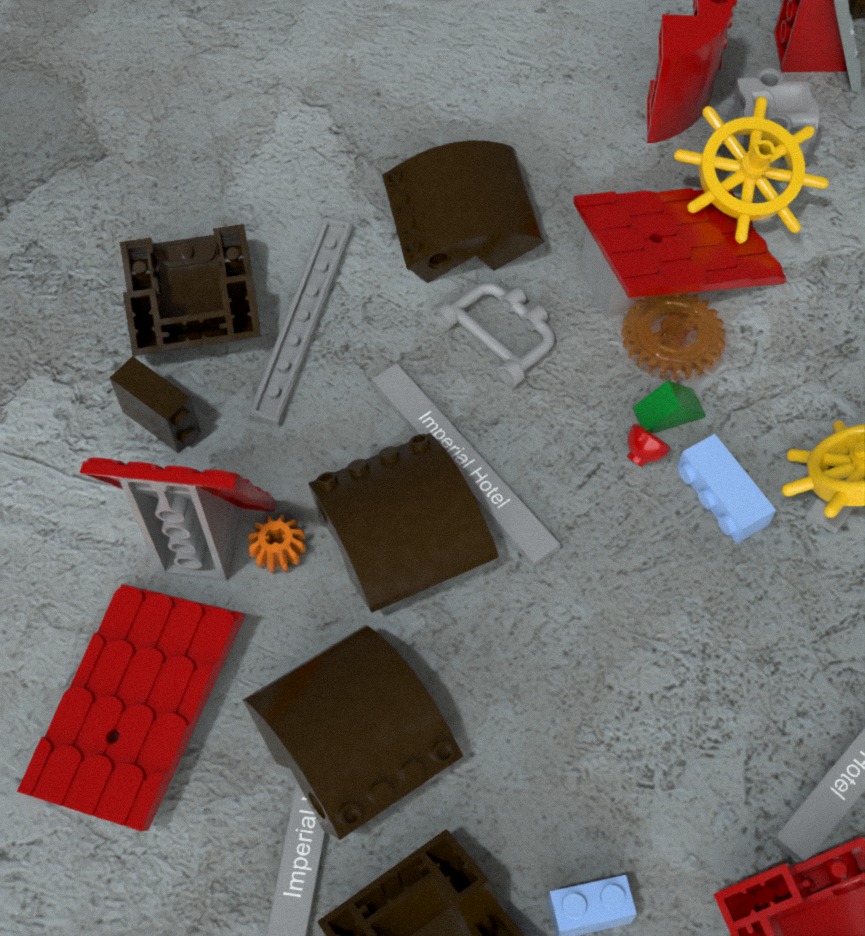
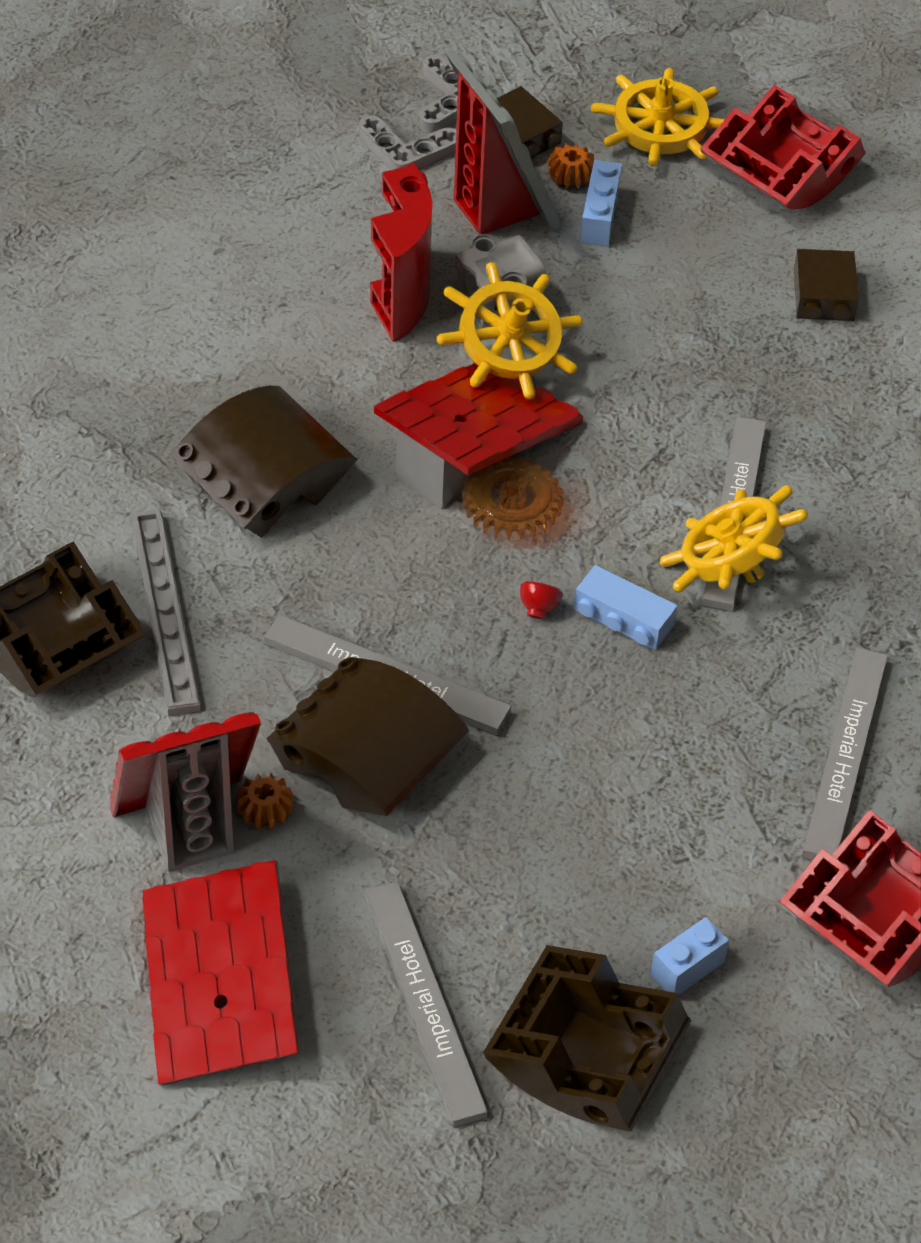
camera: 30 degrees left, 10 degrees down
(155, 404) = (83, 728): dark brown brick -> none
(353, 730) = (427, 902): dark brown slope -> none
(513, 368) = (381, 531): light grey bar -> none
(668, 407) = (540, 561): green slope -> none

